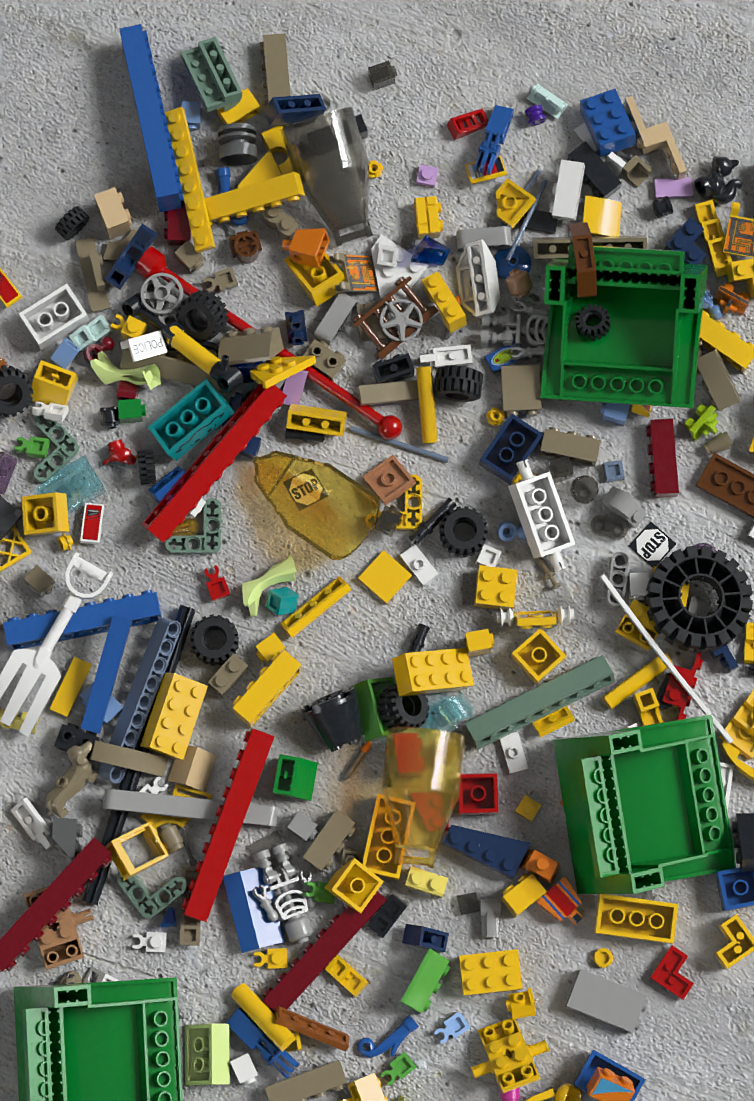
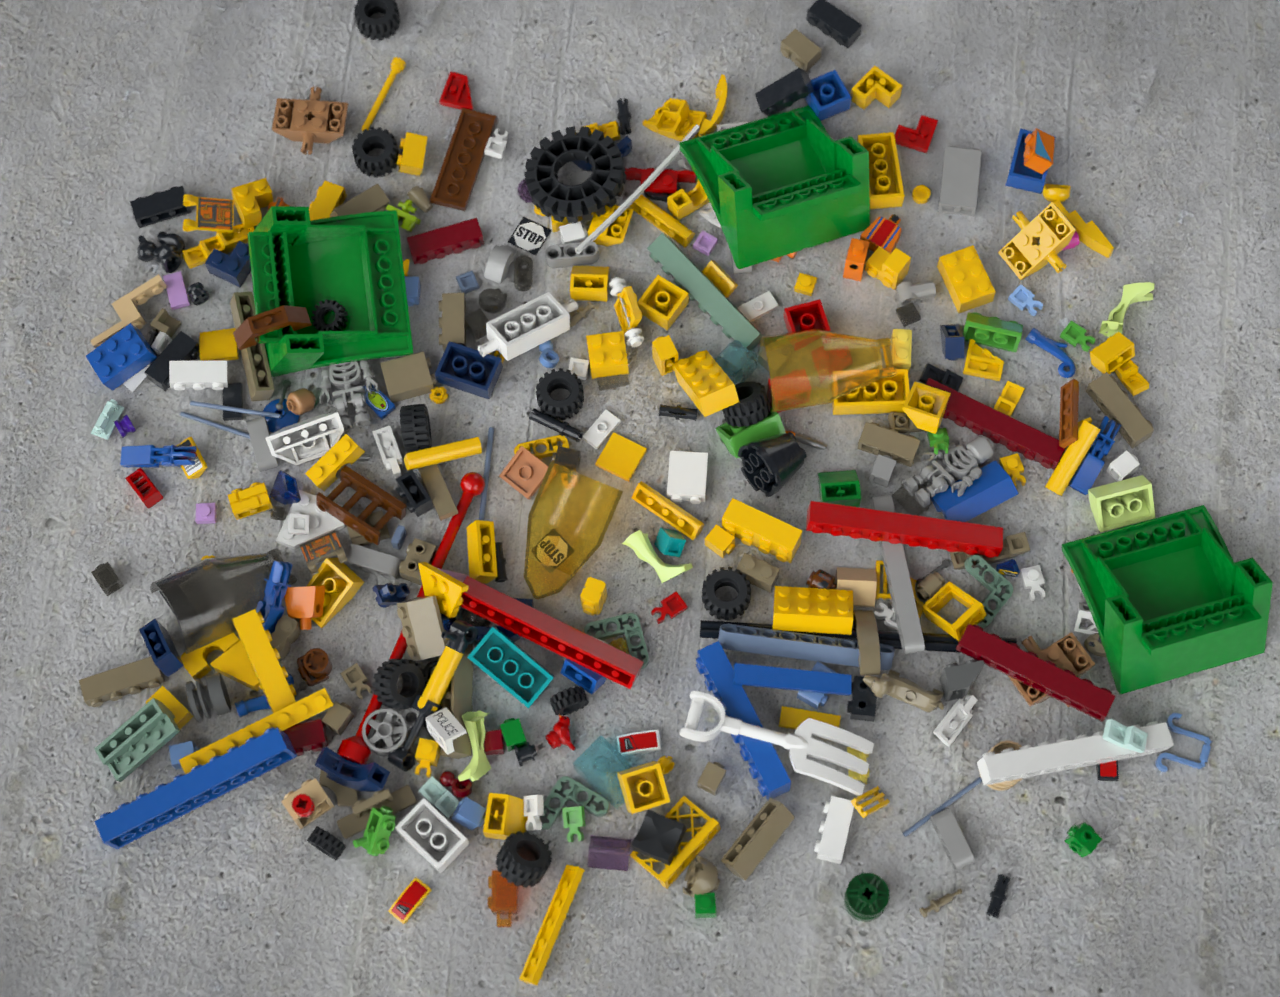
camera: 95 degrees left, 10 degrees down
(70, 269) = (377, 831): none -> bright green brick
(102, 208) = (304, 809): none -> red wheel
(202, 733) = (821, 580): none -> reddish brown head
(242, 513) = (593, 596): none -> yellow brick
(306, 213) = (274, 593): none -> blue arm
(344, 634) = (687, 476): none -> white brick
(353, 347) = (399, 537): none -> sand blue tile
(394, 961) = (982, 363): none -> yellow wing
(401, 319) = (363, 494): light grey wheel -> none
(488, 849) = (855, 300): dark blue wedge -> none
(512, 202) = (219, 425): yellow plate -> none
(518, 261) = (286, 384): none -> dark grey hinge
(521, 1004) = (991, 248): yellow brick -> none
(581, 590) = (589, 283): none -> yellow slope
(598, 718) = (705, 243): none -> lavender plate

